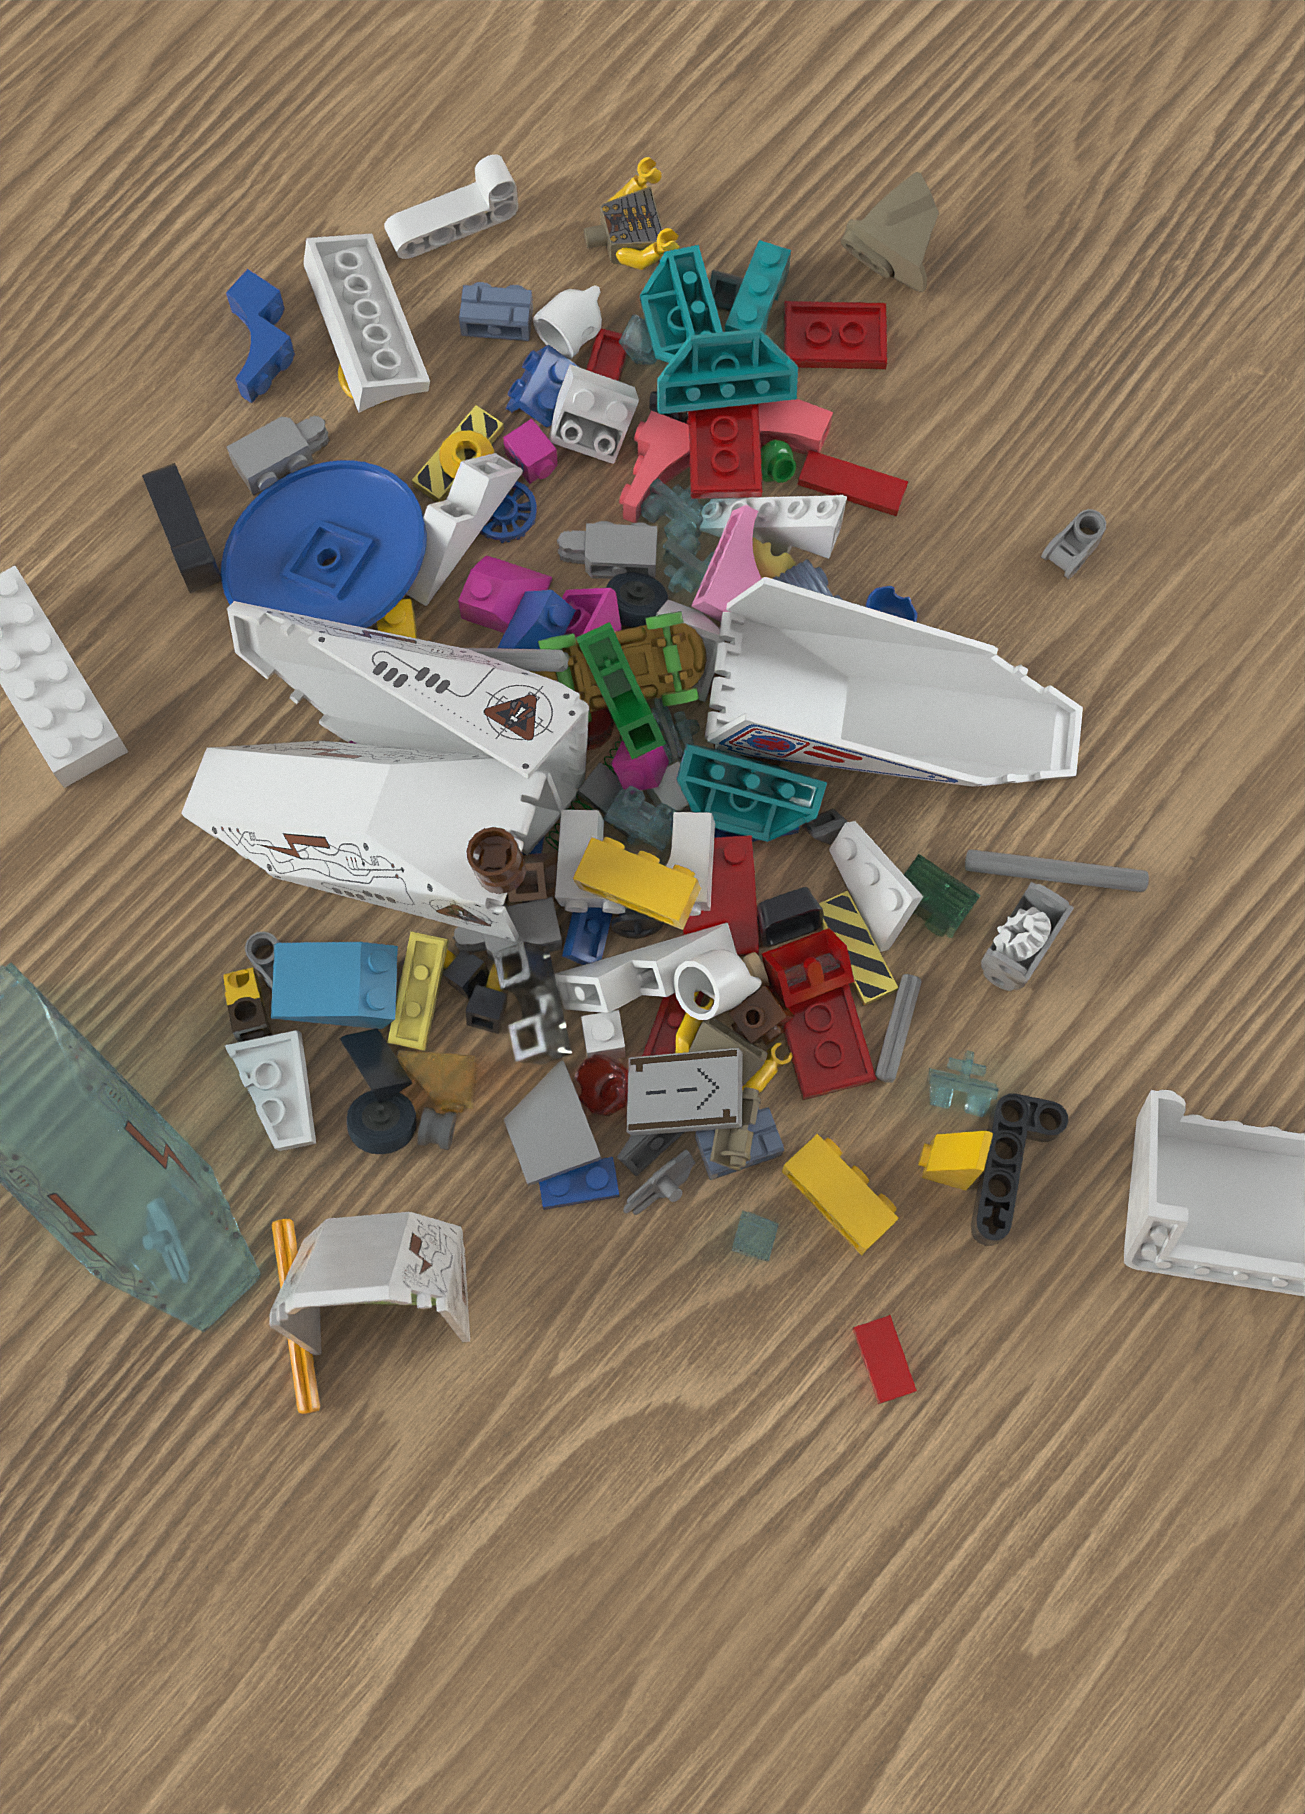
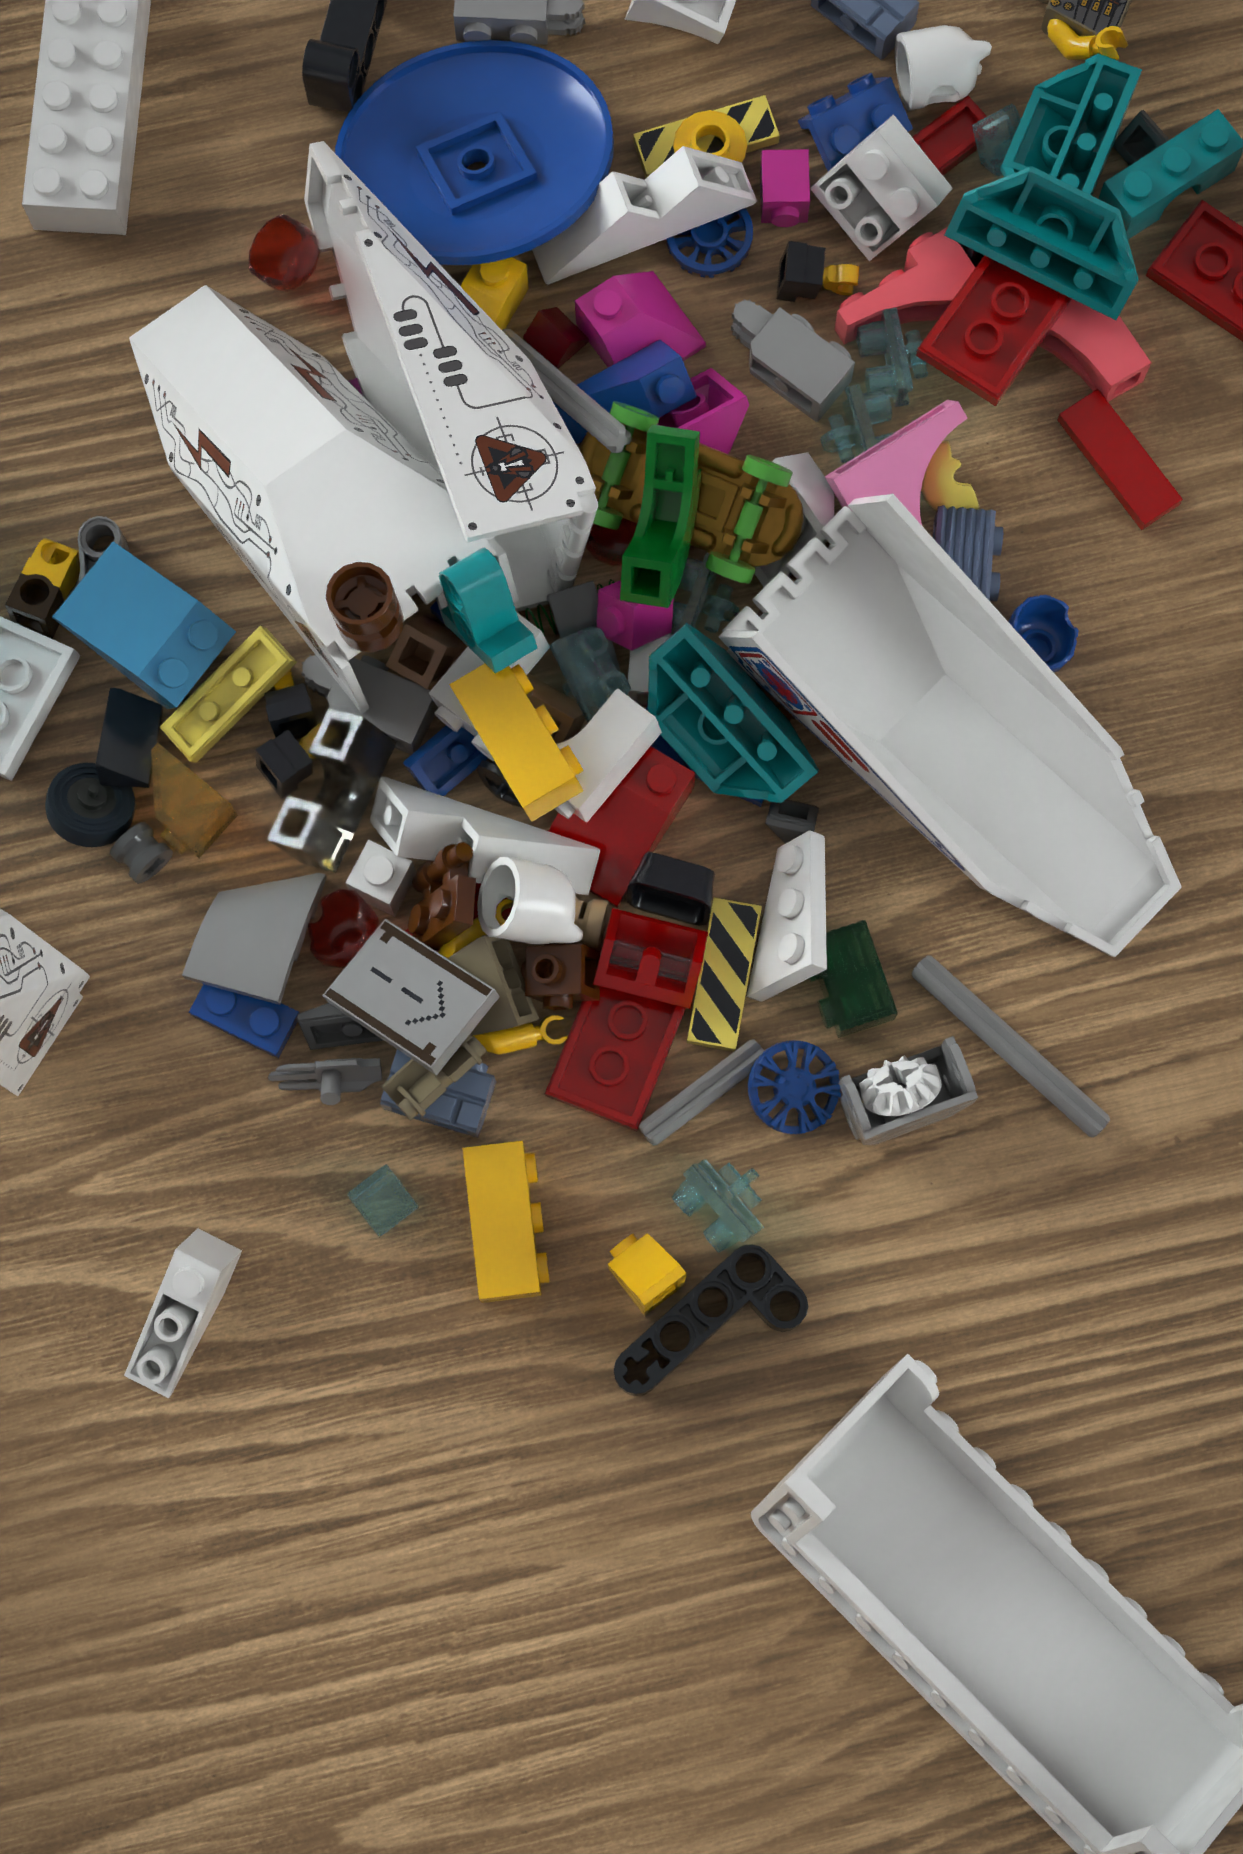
camera: 40 degrees right, 5 degrees up
(246, 694) = (284, 253): none -> clear red hair
(456, 632) = (554, 336): none -> dark red slope
(563, 818) = (483, 611): none -> teal tile
(582, 494) = (804, 273): none -> black piece
(637, 597) = (775, 425): black wheel -> none
(664, 1025) = (447, 897): none -> reddish brown plate
(683, 1398) = (182, 1310): none -> white slope
(777, 461) = (1047, 377): green animal -> none
(784, 521) = (997, 451): white slope -> none
(884, 1359) = (419, 1427): red tile -> none
(950, 985) = (794, 1087): none -> blue wheel

